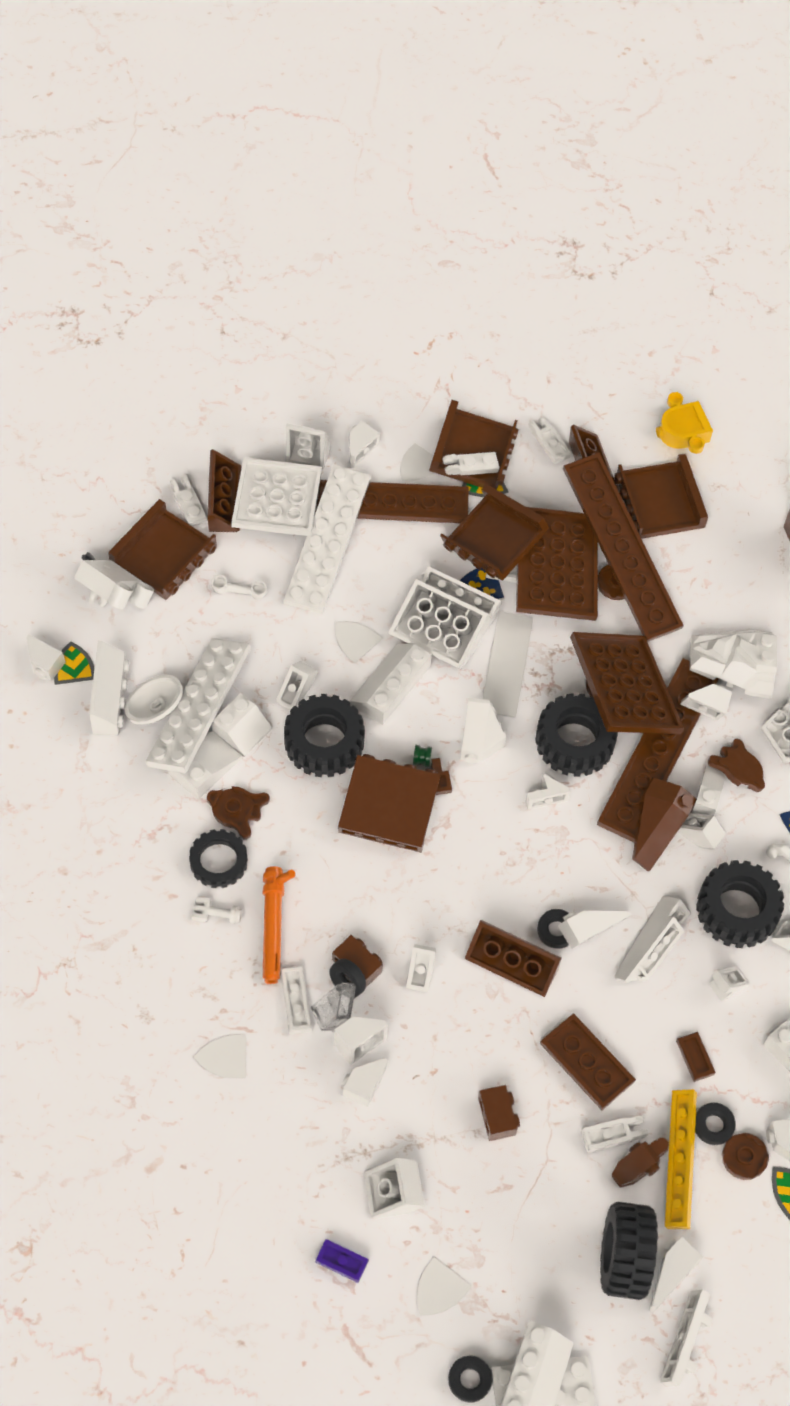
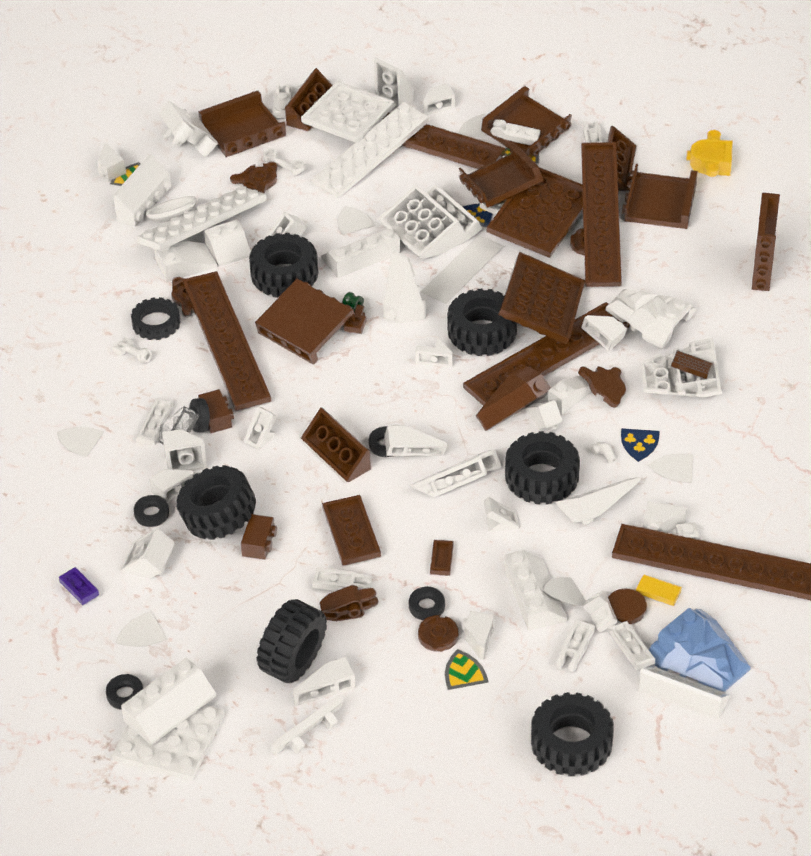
camera: 30 degrees right, 15 degrees down
(220, 618) = (257, 177): none -> reddish brown tile
(273, 892) = (180, 351): orange cylinder -> none
(316, 860) = (226, 341): none -> reddish brown plate
(354, 1136) = (155, 519): none -> black tyre
(414, 1078) = (216, 502): none -> black tyre
(680, 1159) = (382, 614): yellow plate -> none

